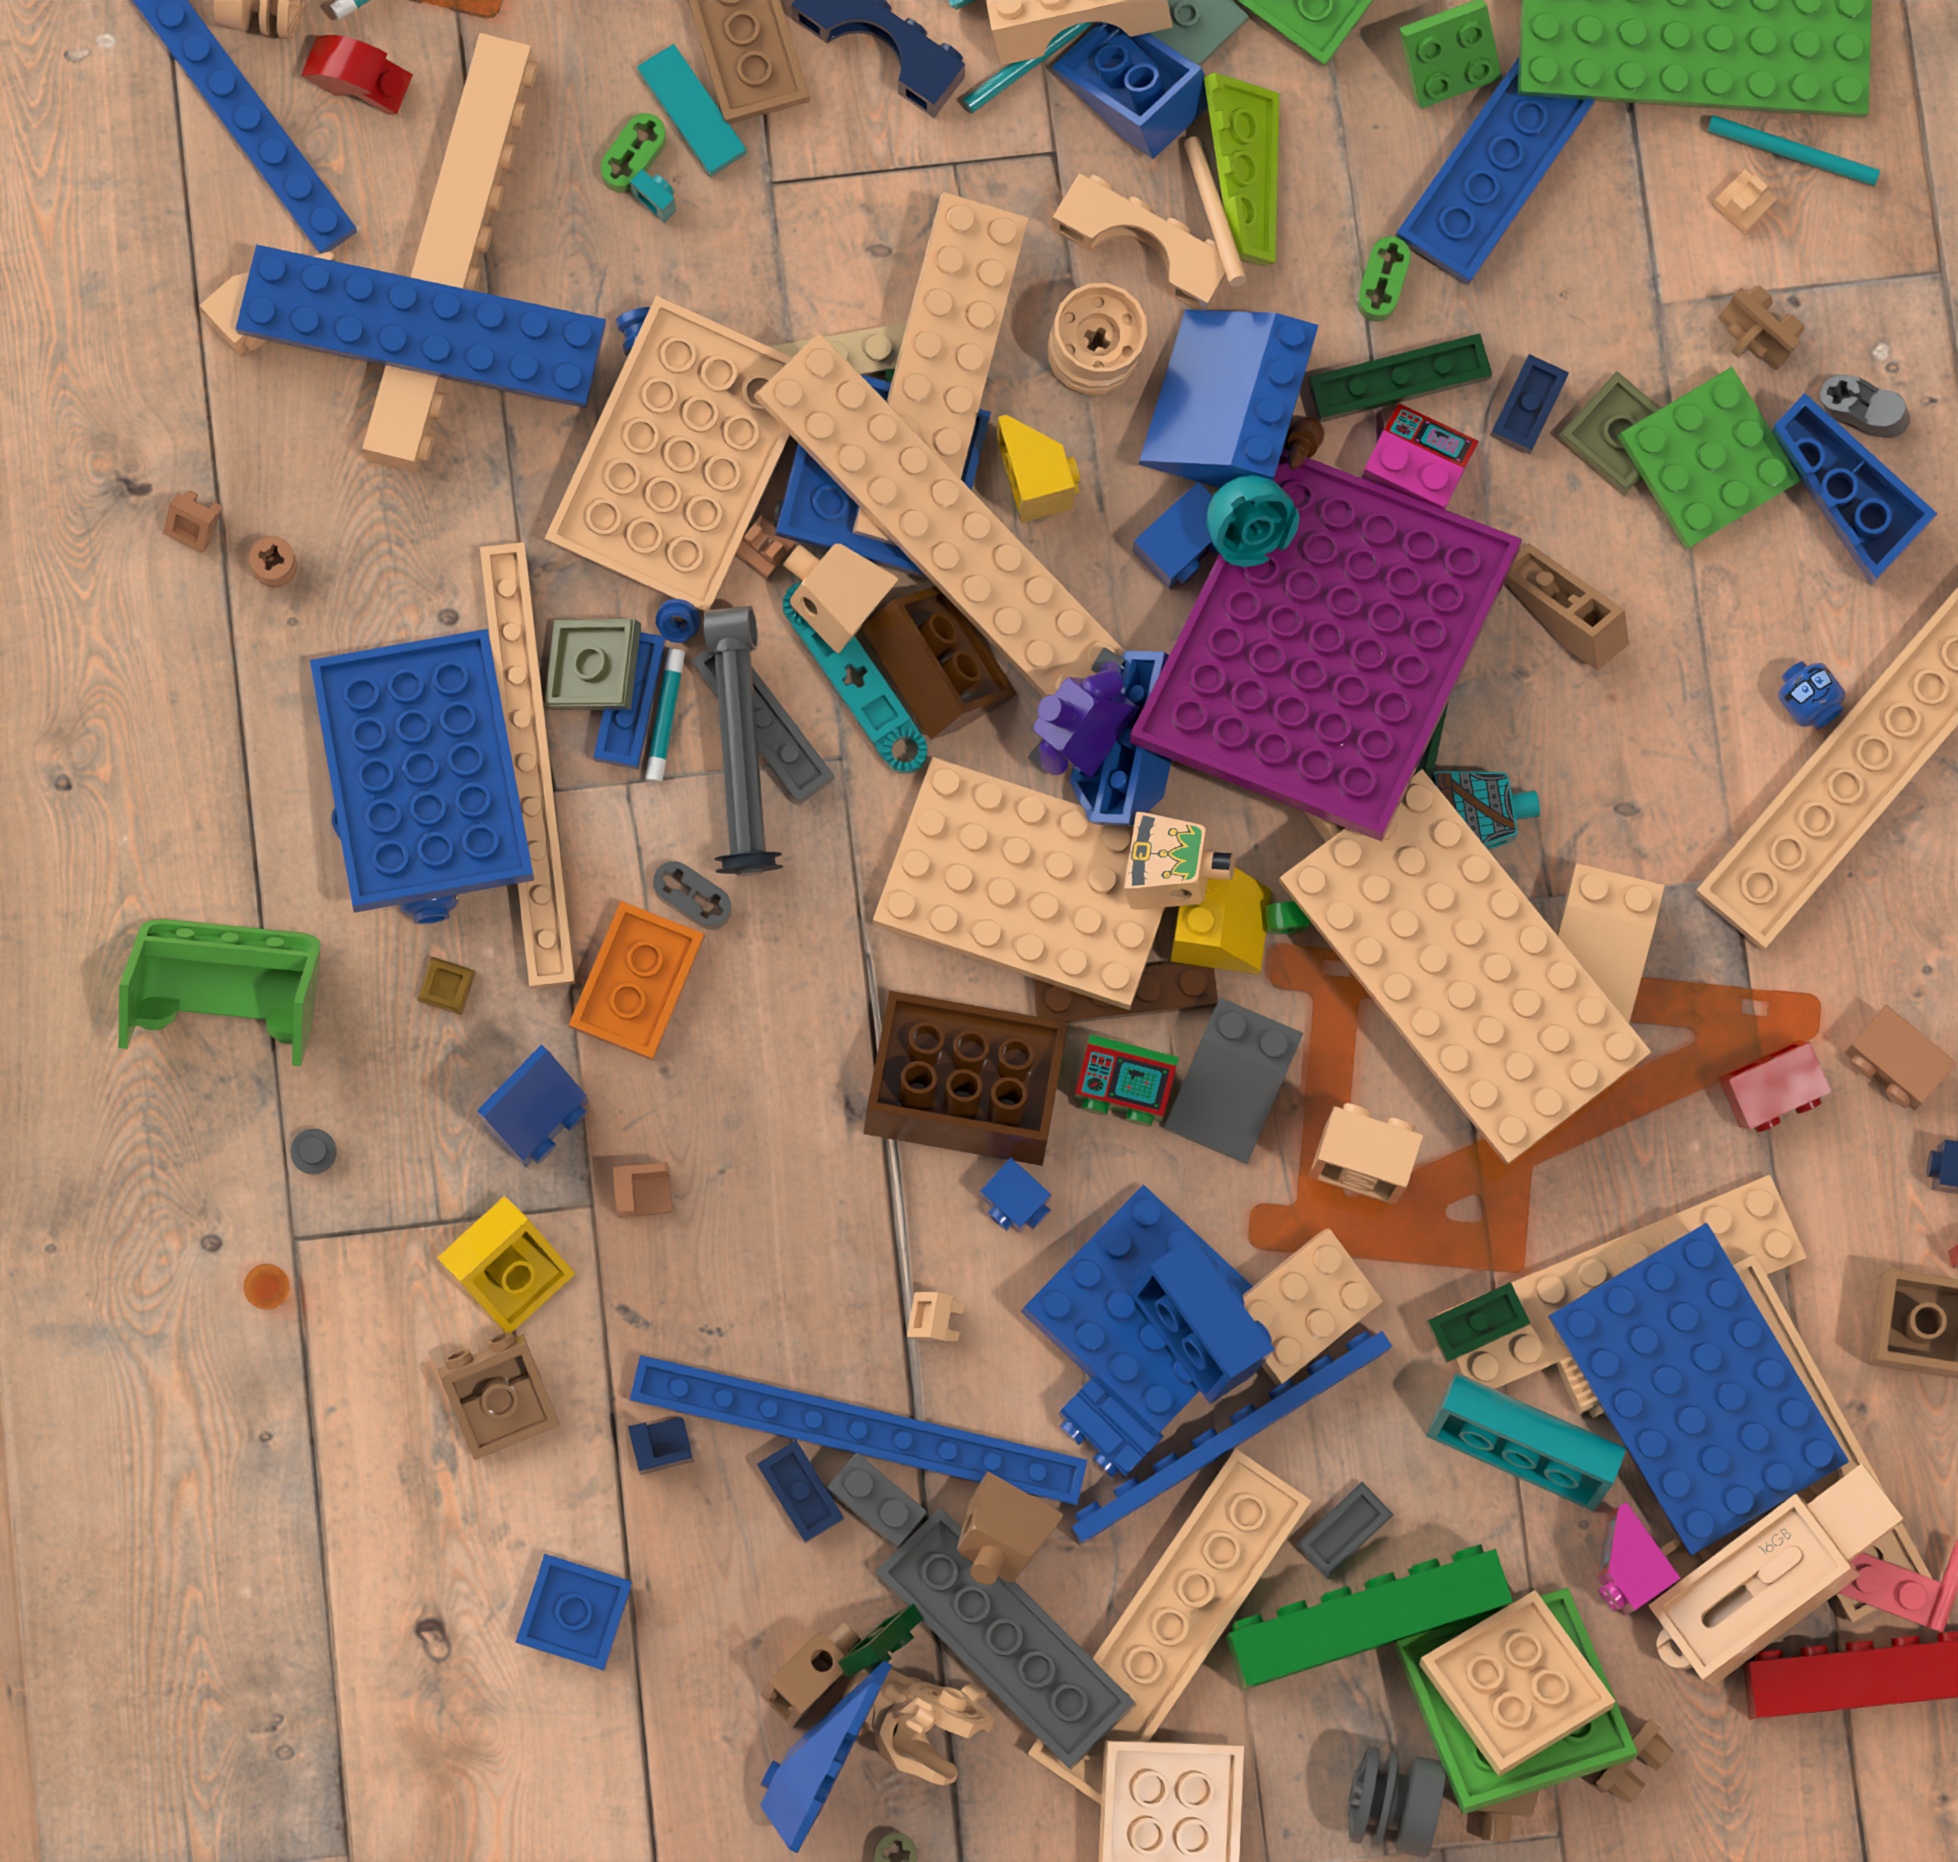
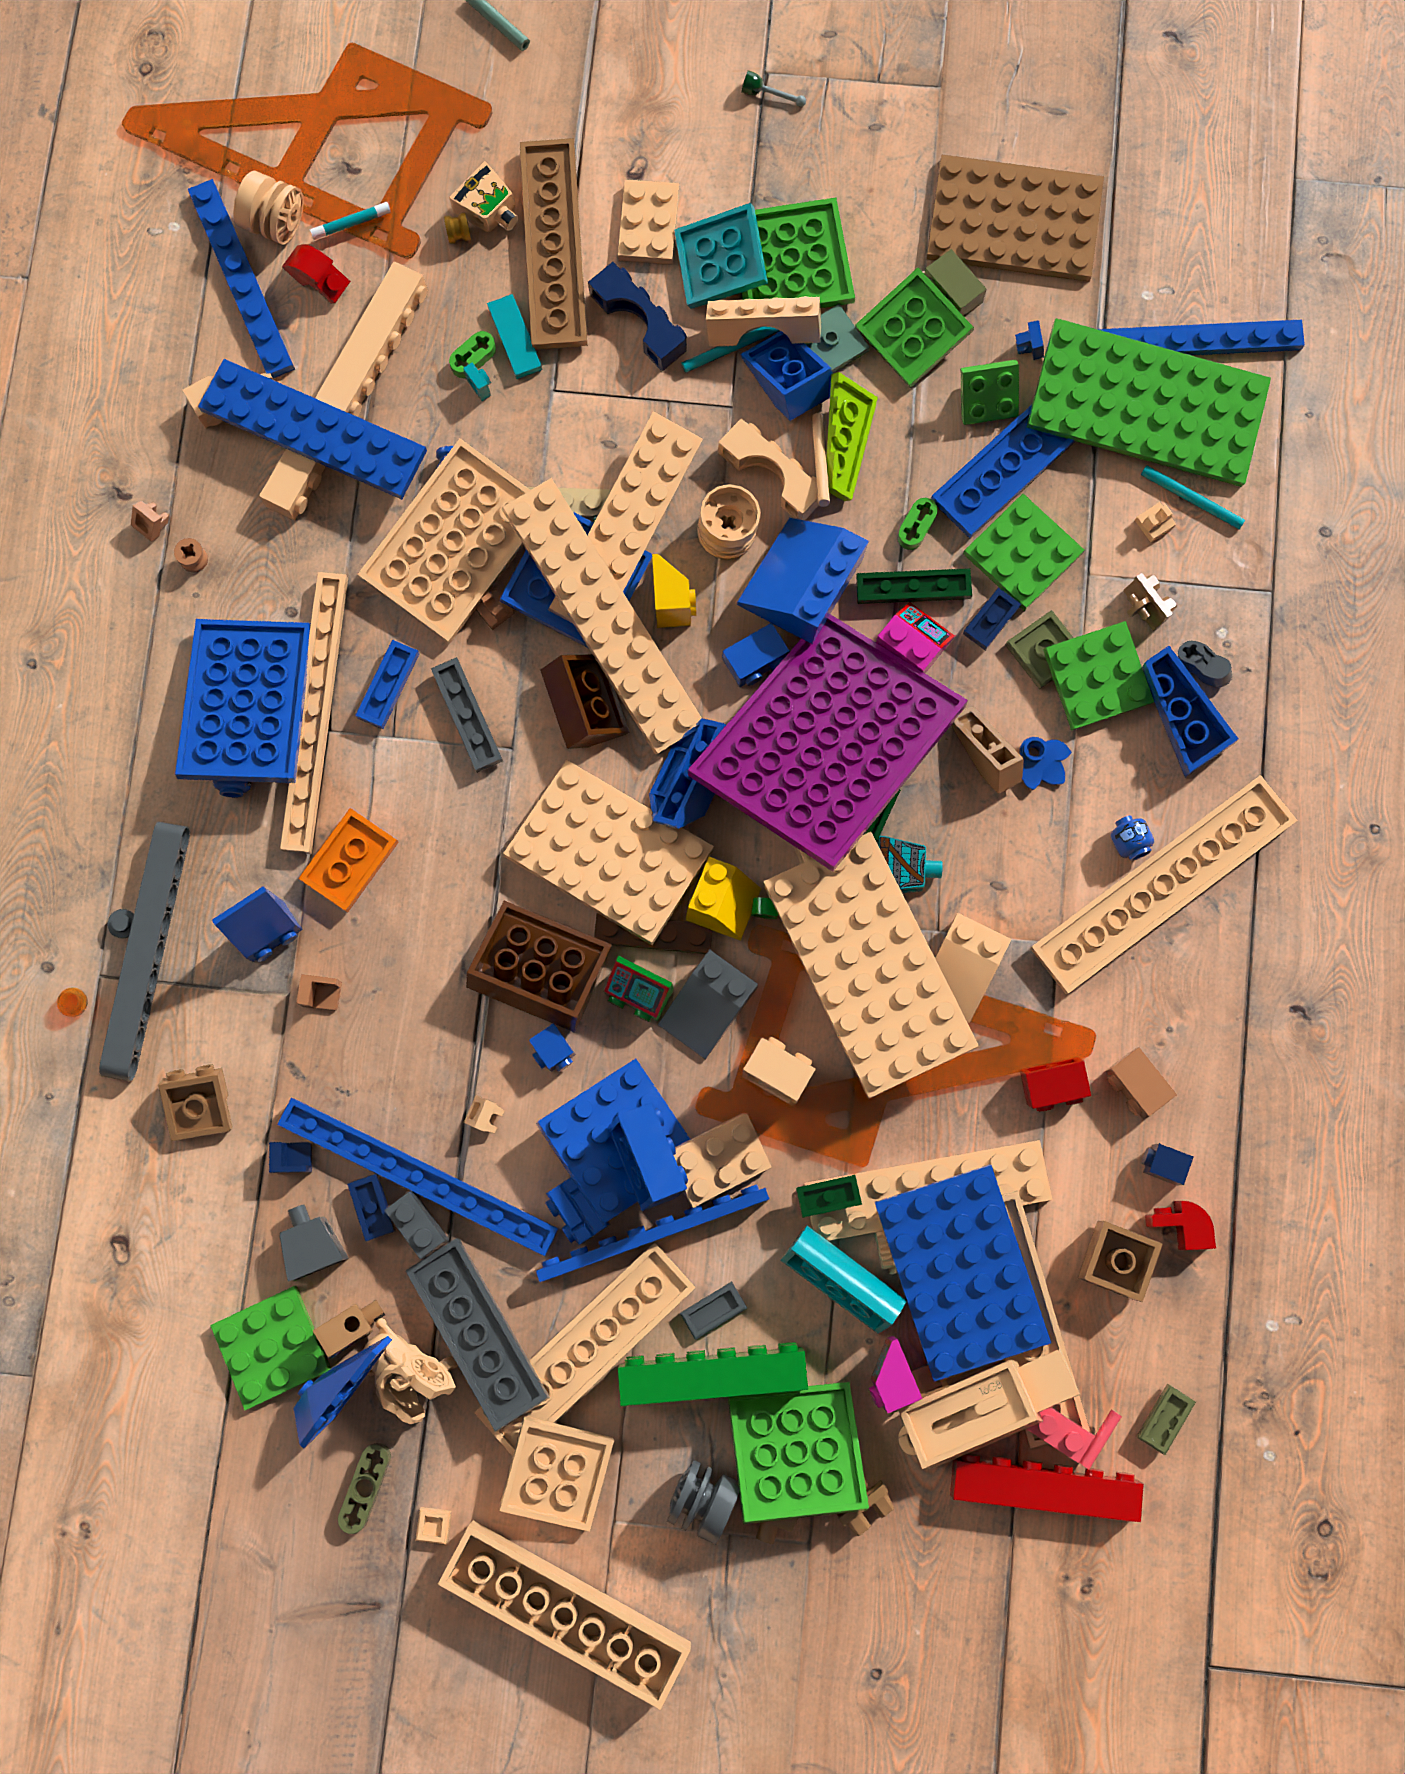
camera: 20 degrees right, 0 degrees up
(221, 973) = (90, 798): bright green windscreen -> none
(359, 1185) = (144, 951): none -> dark grey beam
(446, 986) = (231, 838): pearl gold tile -> none
(506, 1265) = (222, 1022): yellow slope -> none
(574, 1612) = (209, 1253): blue plate -> none
(592, 664) = (369, 658): tile -> none
(665, 716) = (408, 699): teal bar -> none
(675, 630) = (425, 647): blue plate -> none
(698, 886) = (392, 819): dark grey beam -> none
(699, 1730) = (270, 1347): none -> bright green plate
(722, 1566) = (309, 1245): none -> dark grey torso
(731, 638) = (456, 658): dark grey piece -> none
(837, 591) = (529, 644): light nougat torso -> none
(871, 705) = (538, 718): teal piece -> none
(887, 1636) = (402, 1315): dark green plate -> none
(1004, 1530) = (492, 1264): medium nougat torso -> none
(1083, 719) = (662, 754): dark purple torso -> none
(1171, 863) = (696, 857): light nougat torso -> none
(1250, 520) = (797, 651): teal cylinder -> none
(1304, 439) = (844, 612): reddish brown bar -> none
(1517, 1683) = (799, 1443): light nougat plate -> none
(1555, 289) = (1023, 551): none -> bright green plate
(1659, 611) = (1046, 765): none -> blue plate

